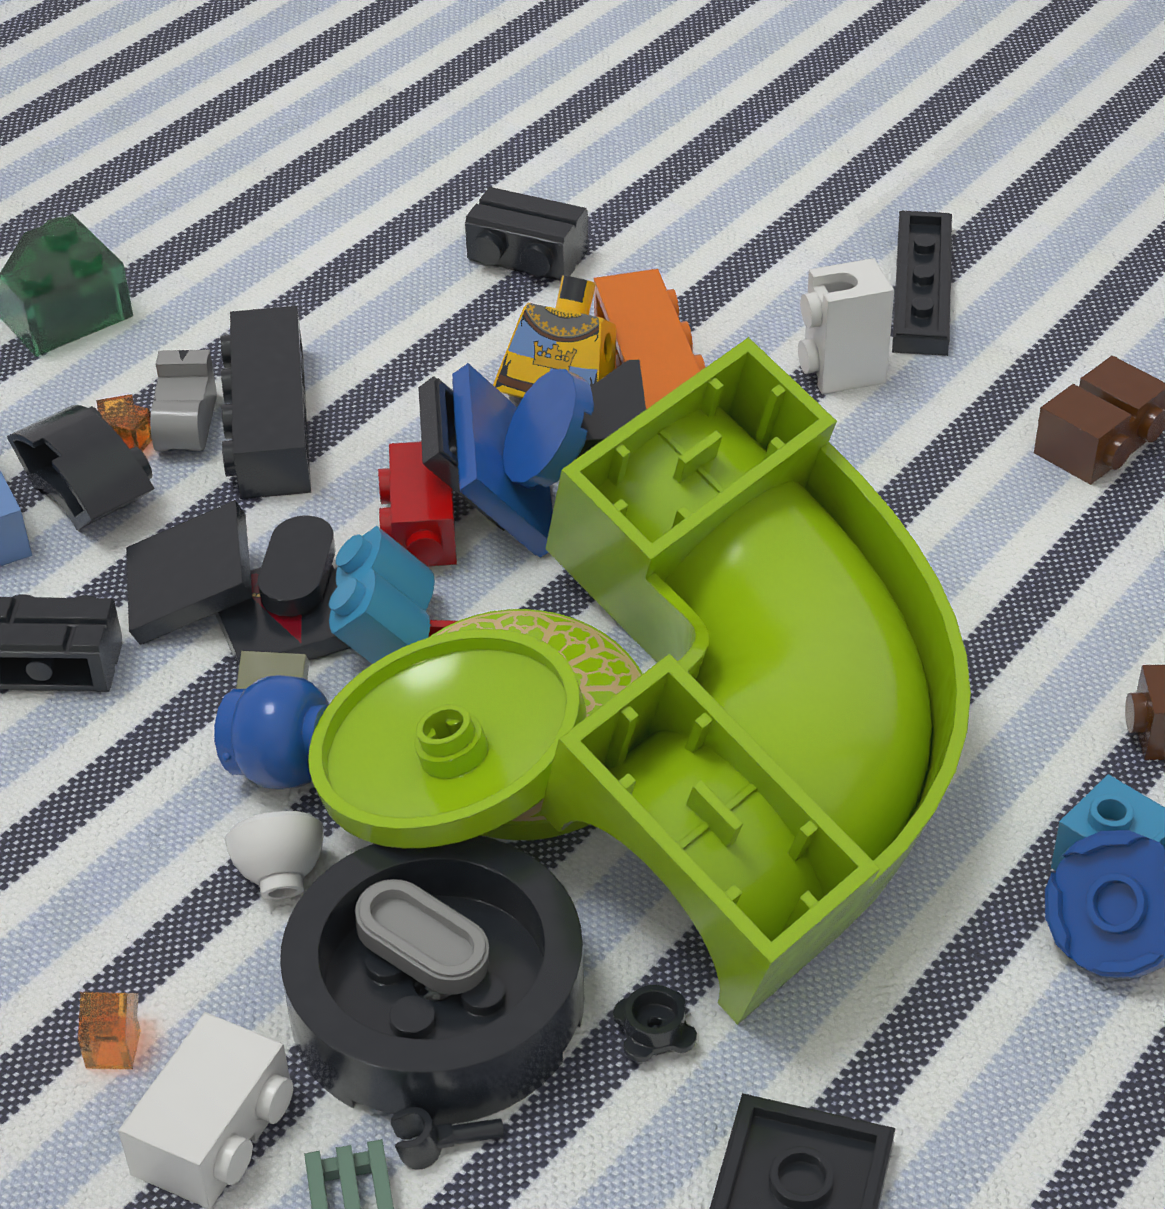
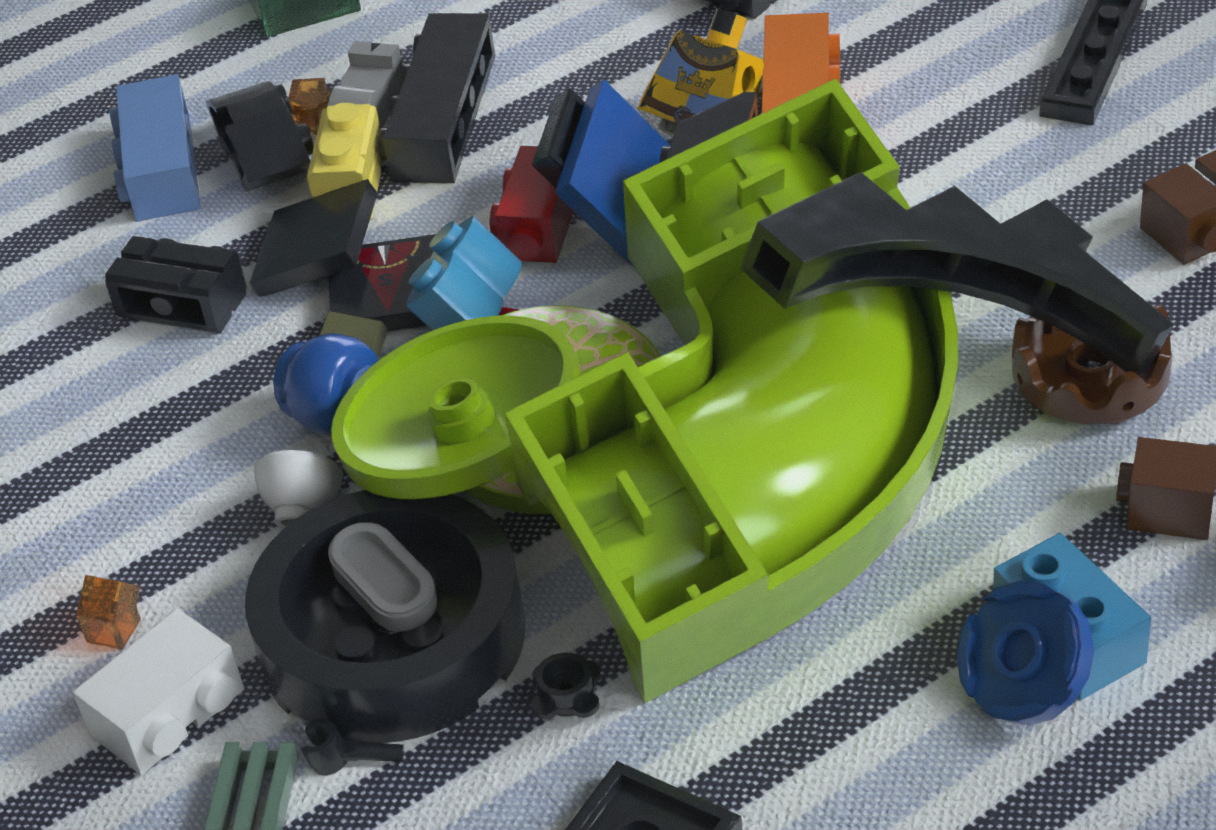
camera: 20 degrees right, 0 degrees up
(190, 468) = (345, 149): none -> light yellow brick
(296, 565) = (403, 243): black tile -> none
(547, 429) = (649, 139): blue tile -> none
(846, 325) = (986, 84): white brick -> none
(988, 504) = (1029, 263): none -> black arch
(1059, 562) = (1054, 381): none -> reddish brown plate

